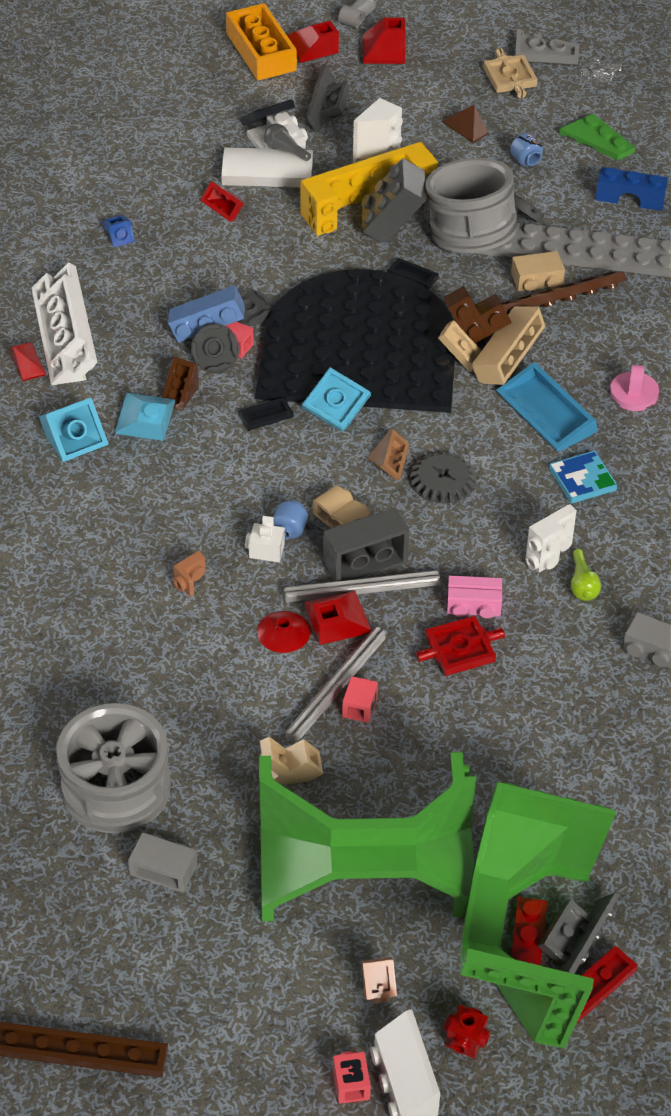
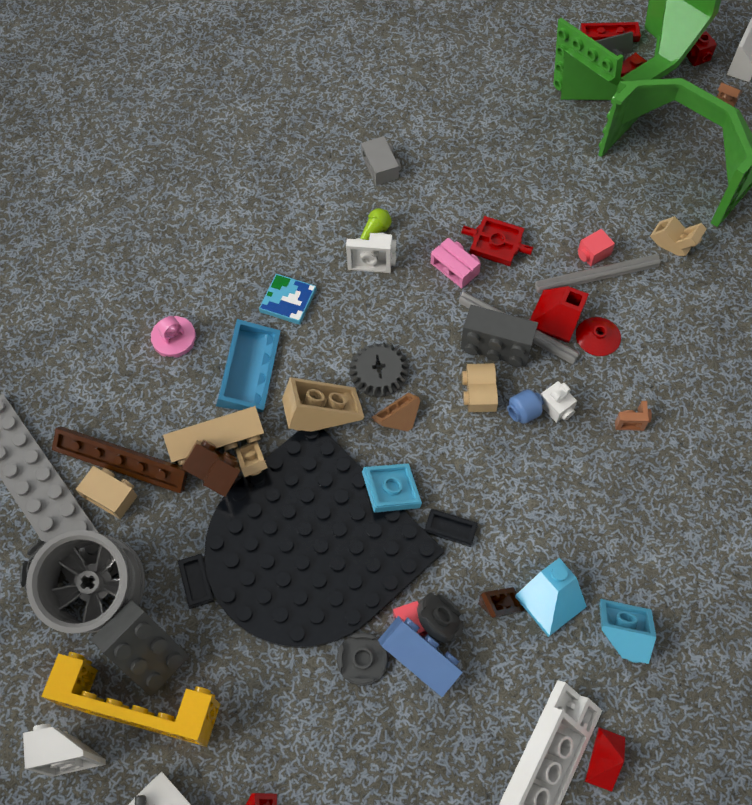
camera: 135 degrees left, 15 degrees up
(452, 410) = (319, 405): none -> tan slope

